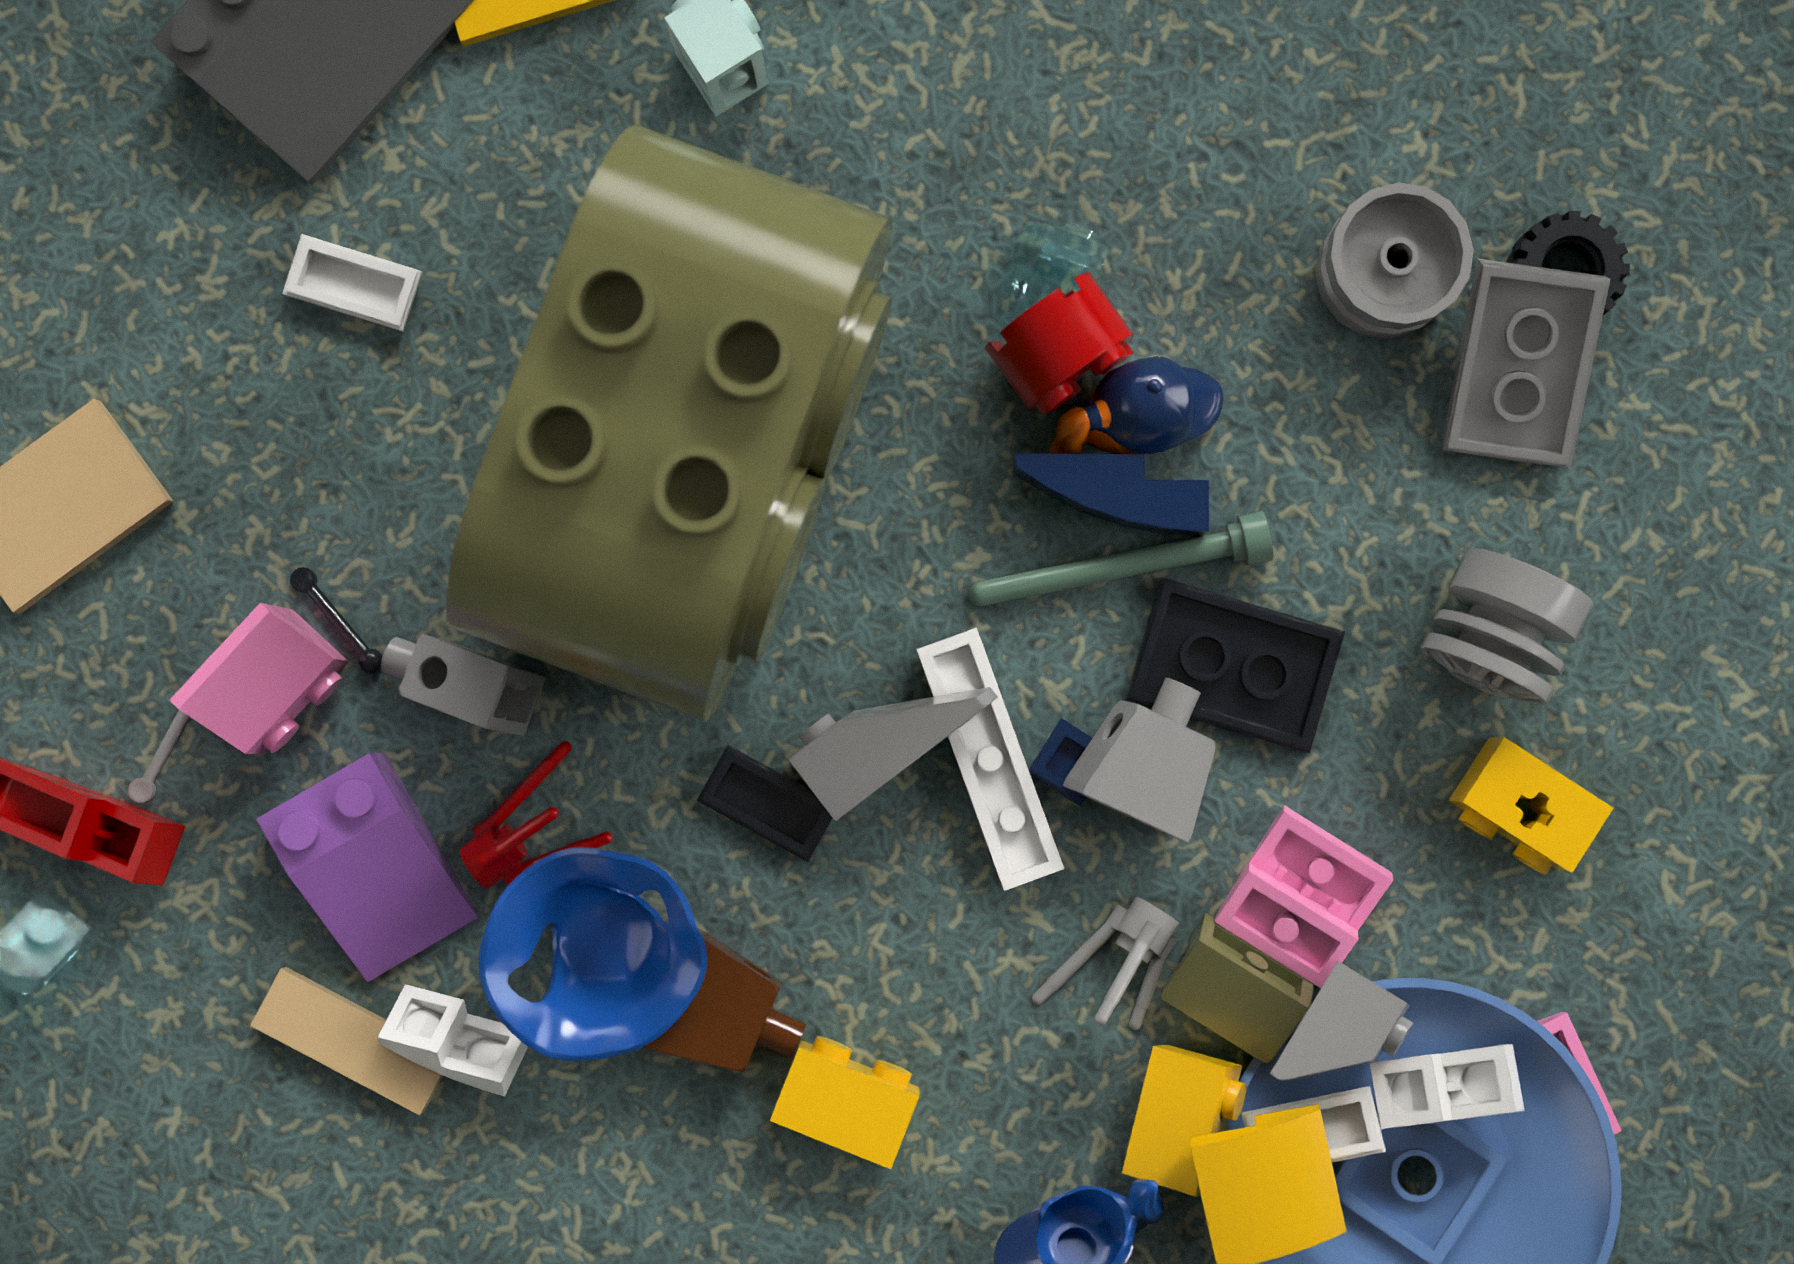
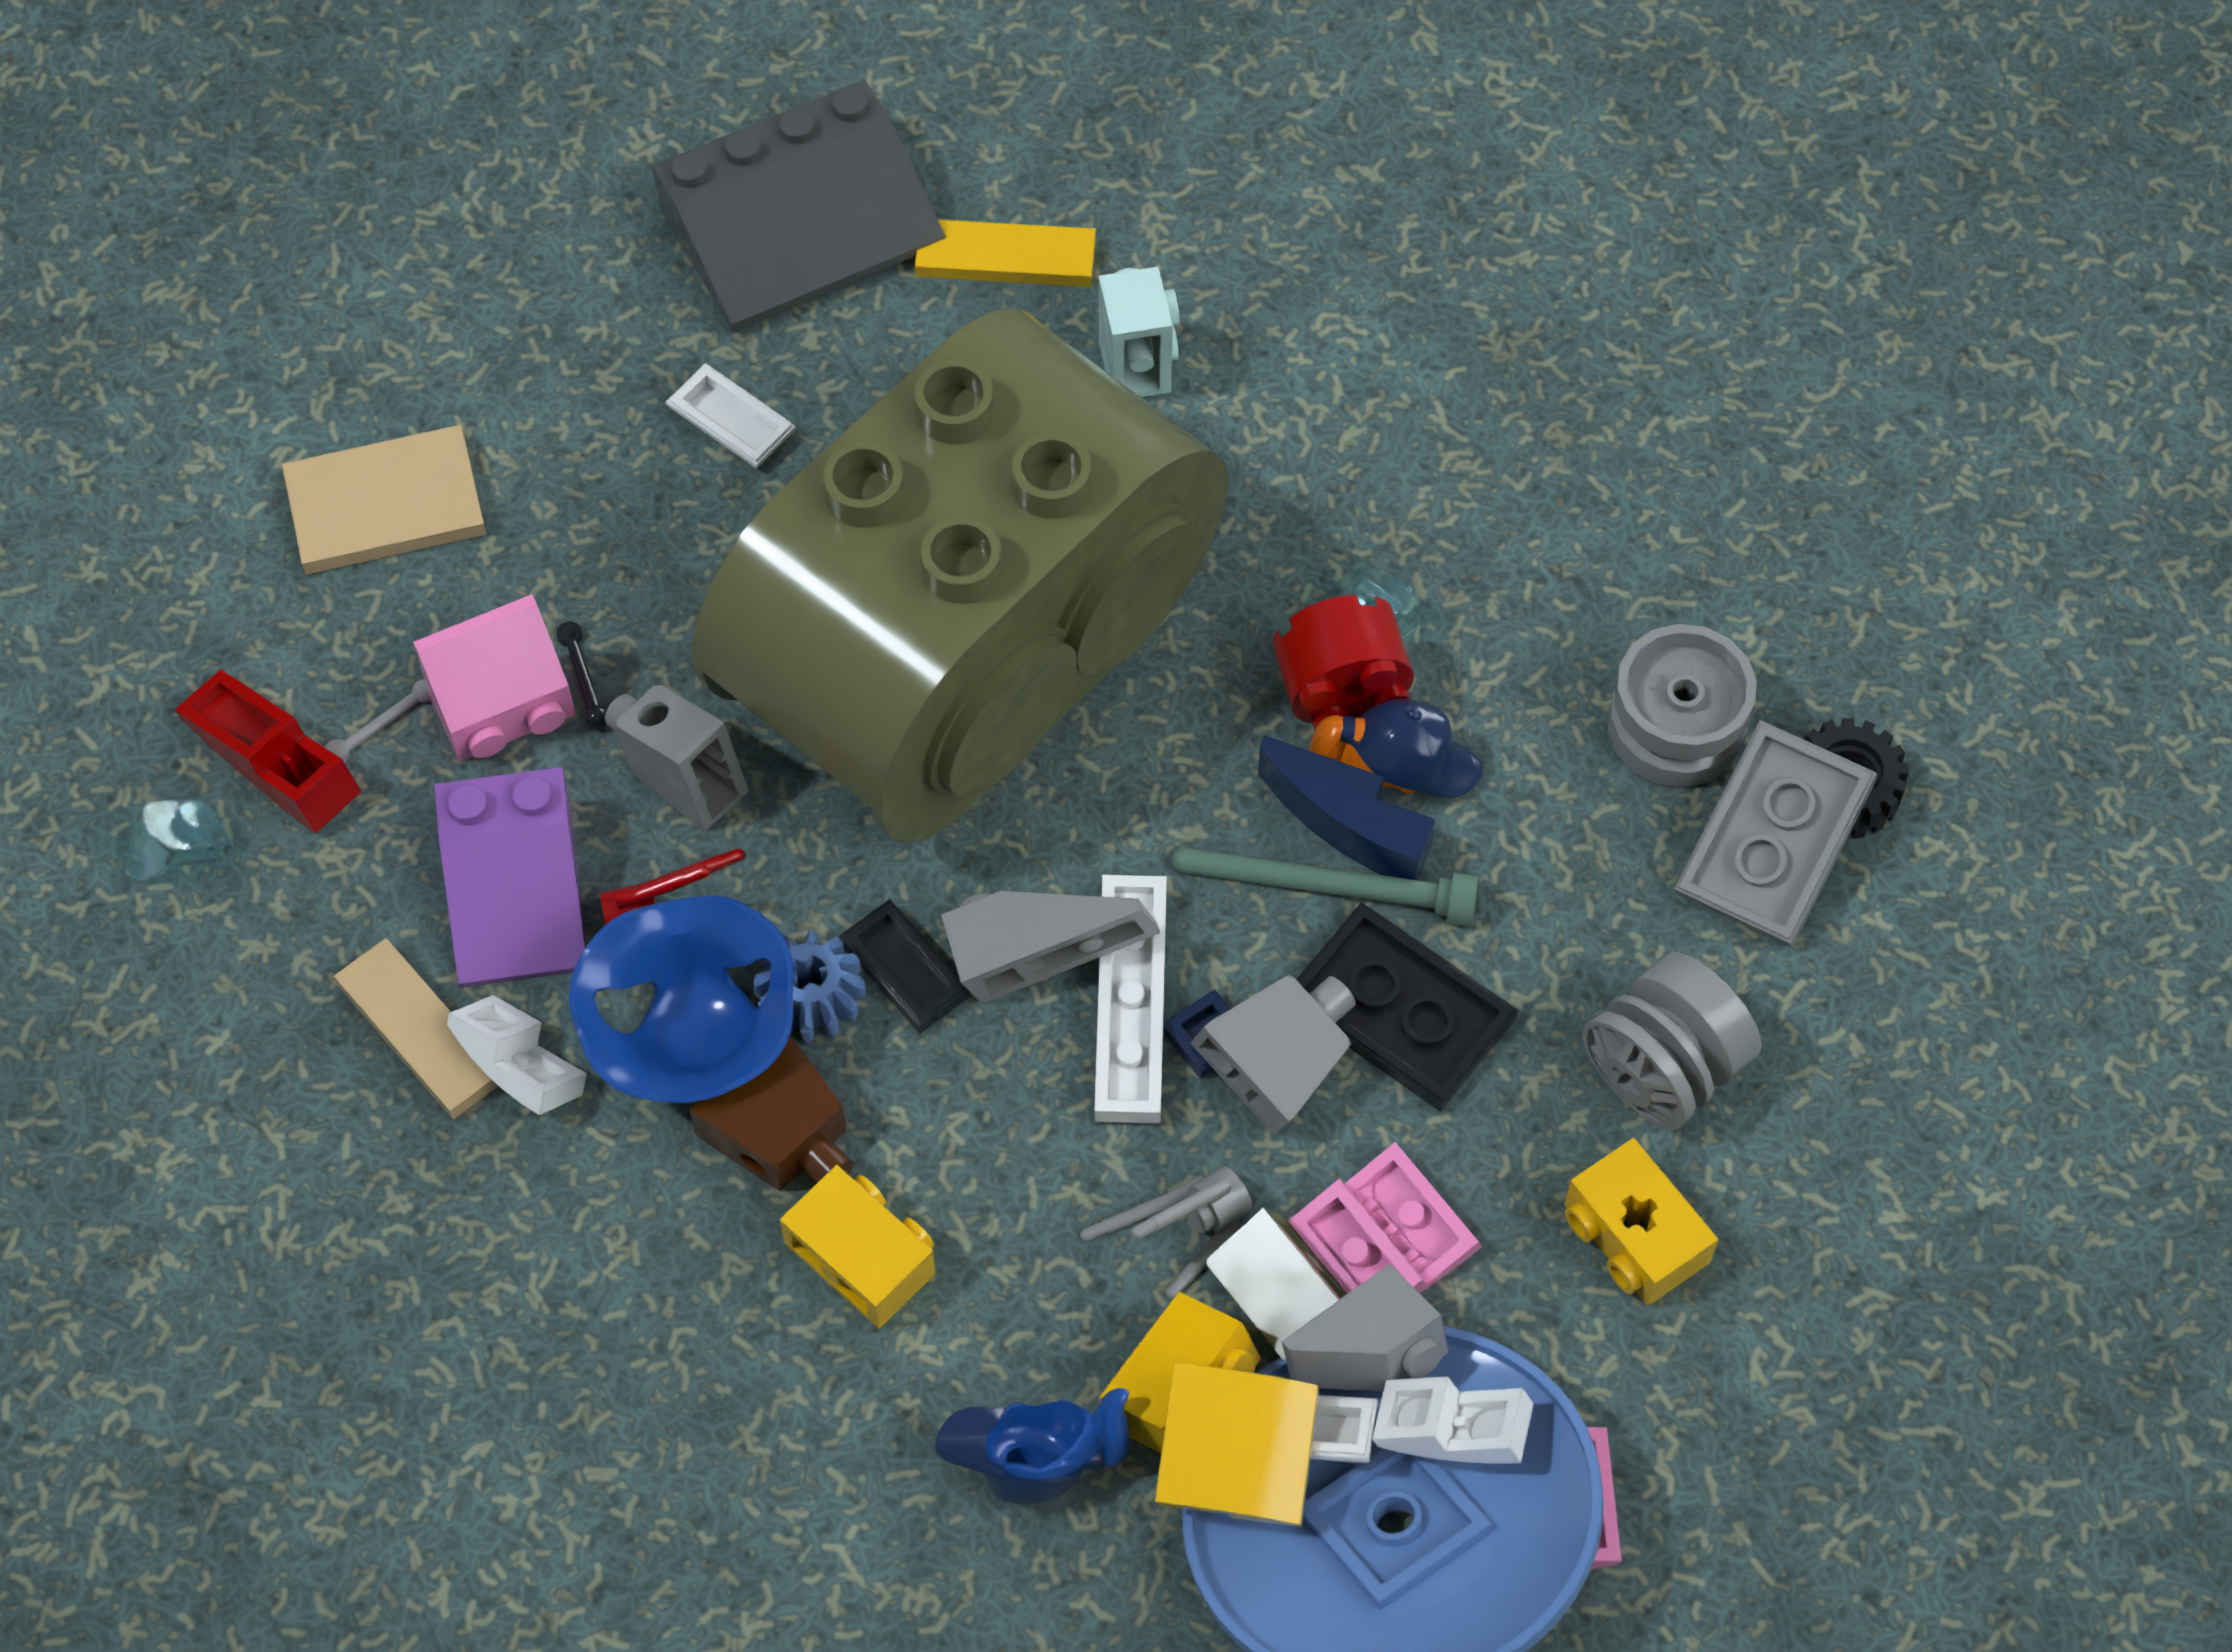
camera: 20 degrees right, 25 degrees down
(712, 851) = (825, 1003): none -> medium blue gear

